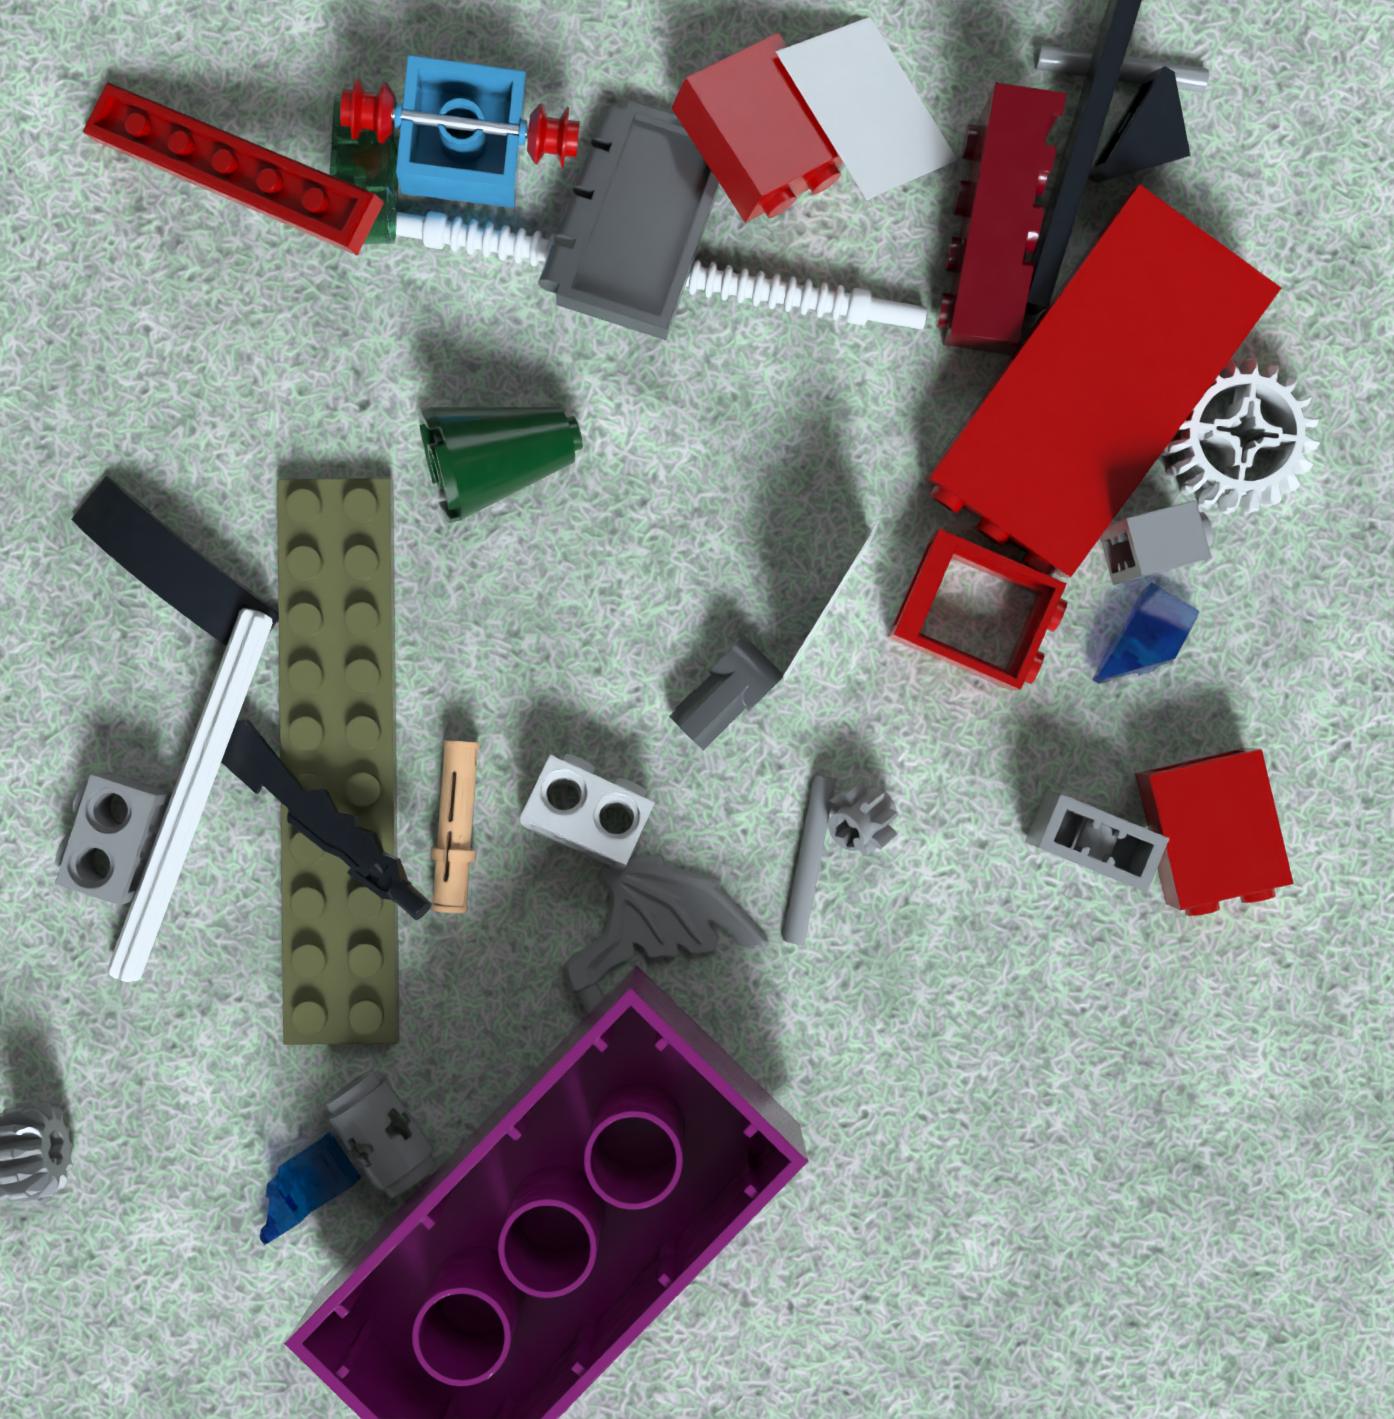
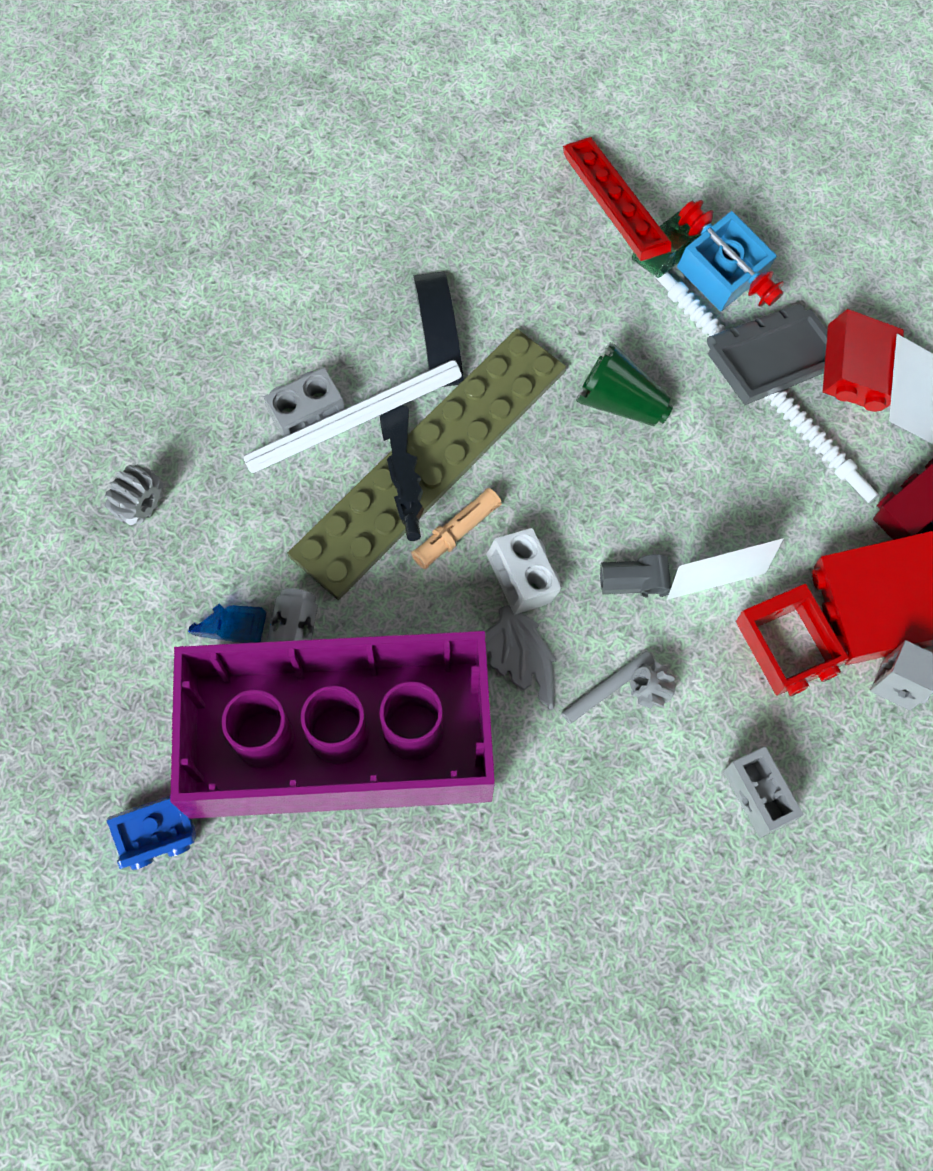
camera: 40 degrees right, 20 degrees down
(1149, 637) = (868, 726): clear blue slope -> none
(1218, 830) = (828, 845): red brick -> none

